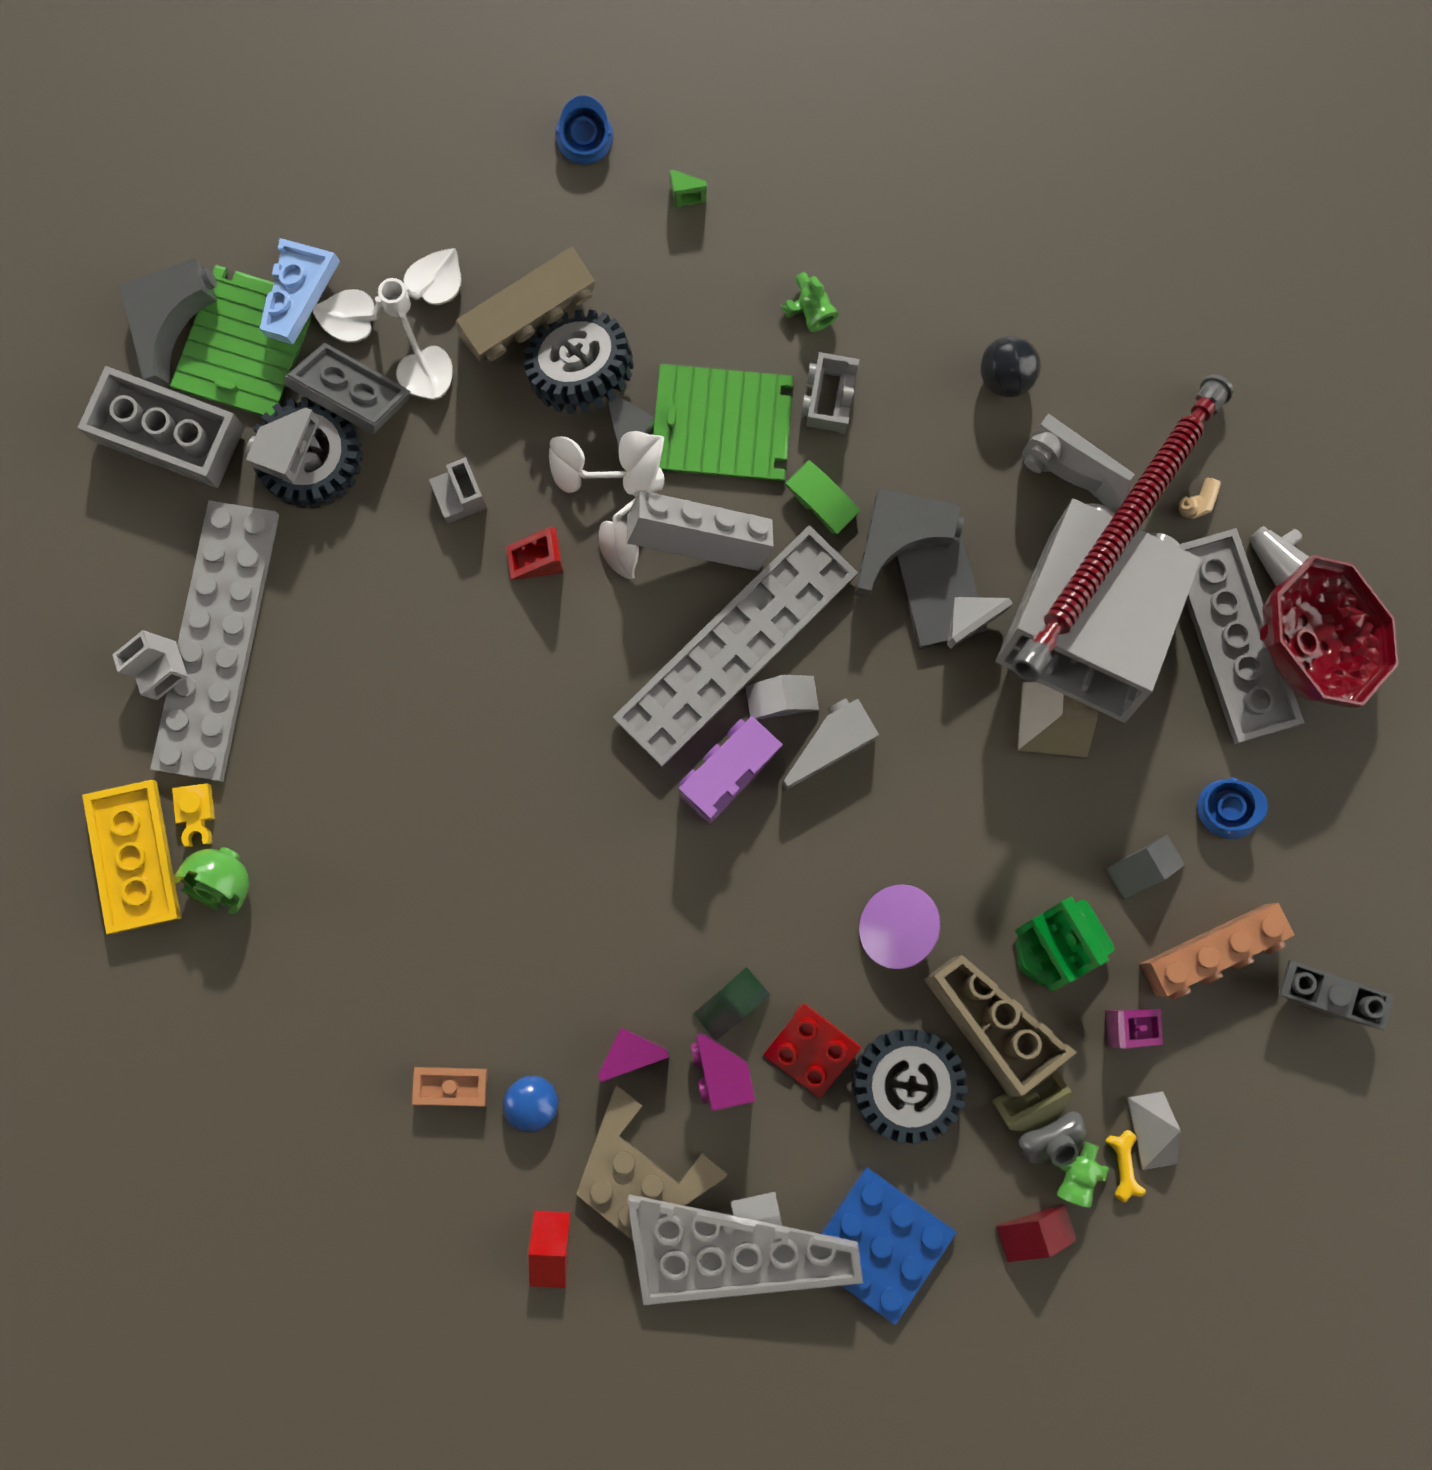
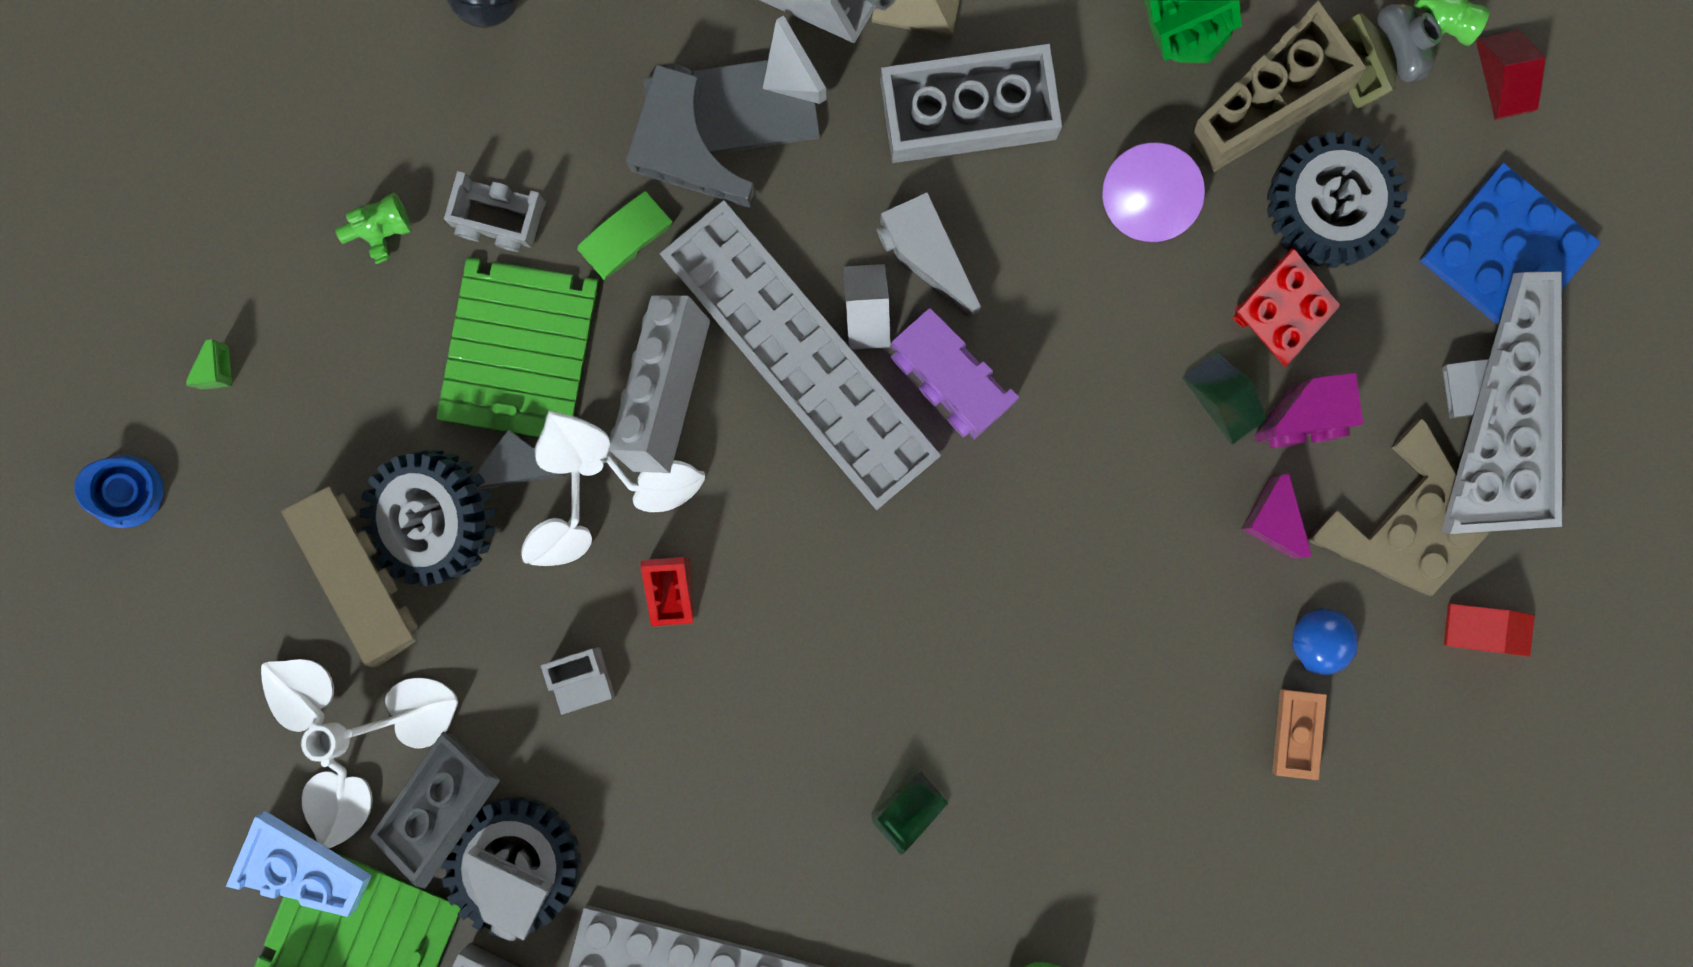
camera: 80 degrees left, 5 degrees up
(365, 762) = (909, 812): none -> clear green slope
(958, 765) = (970, 103): none -> light grey brick

